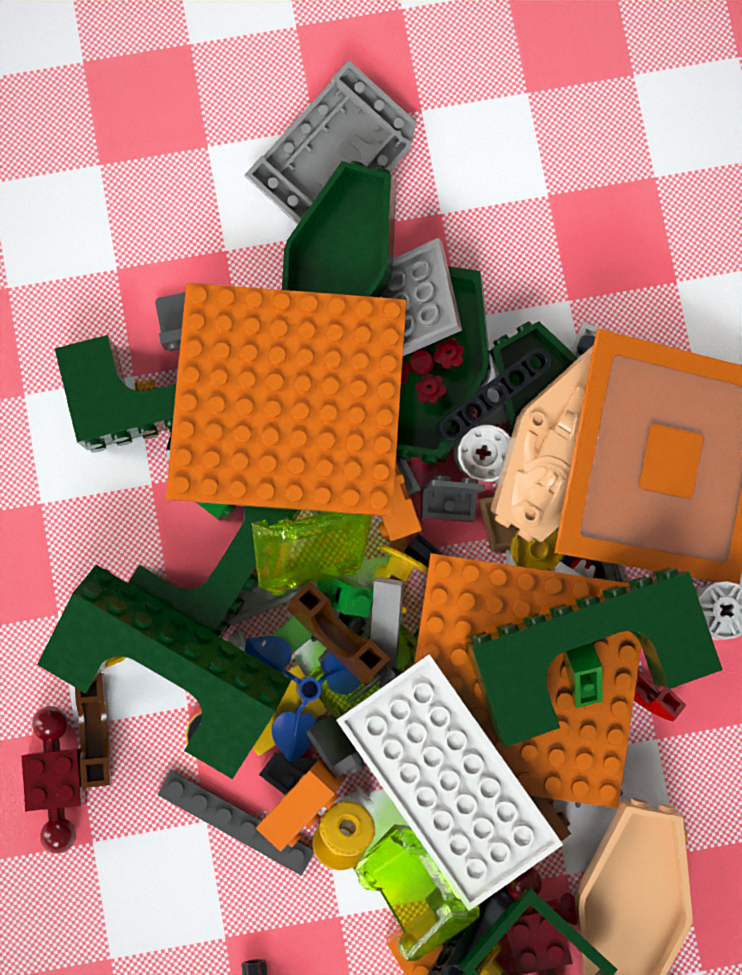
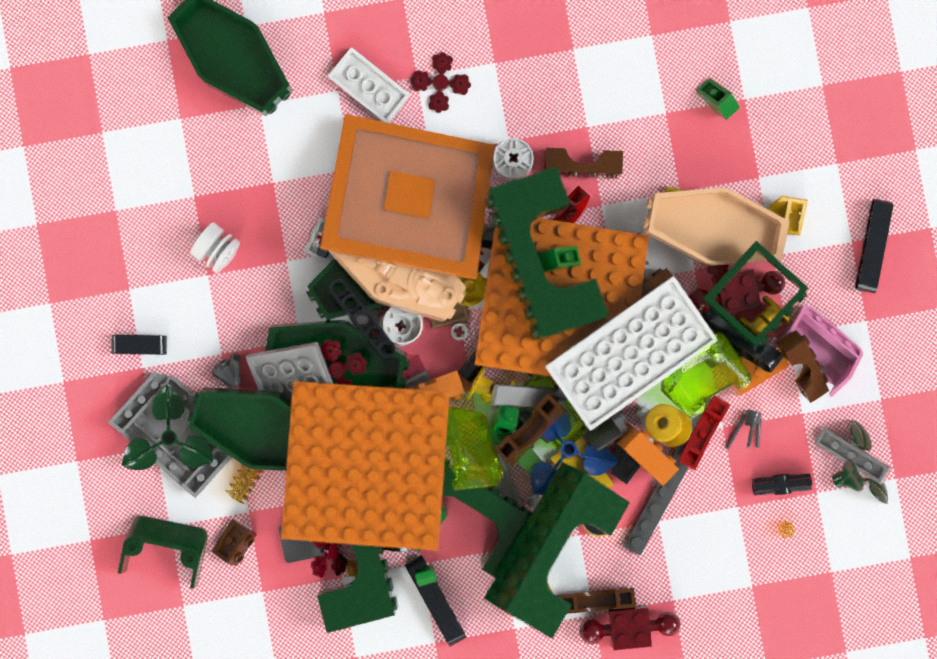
camera: 85 degrees left, 5 degrees up
(98, 503) = (437, 605): none -> black beam
(132, 487) = (425, 575): none -> green brick
(167, 356) = (331, 552): none -> dark red plant
(182, 230) = (234, 543): none -> reddish brown bracket
(189, 166) = (168, 534): none -> dark green windscreen
(263, 241) = (242, 483): none -> clear yellow piece
(308, 174) = (195, 451): none -> dark green plant
(332, 887) = (703, 432): none -> red slope
(351, 960) = (753, 420): none -> dark grey plant
(418, 220) = (228, 371): none -> dark grey rock
(450, 500) = (435, 349): dark grey bracket -> none
(453, 103) = (139, 344): none -> black beam
(470, 529) = (464, 328): none -> white bush
(587, 200) = (213, 246): none -> white wheel
(715, 747) = (608, 165): none -> reddish brown arch

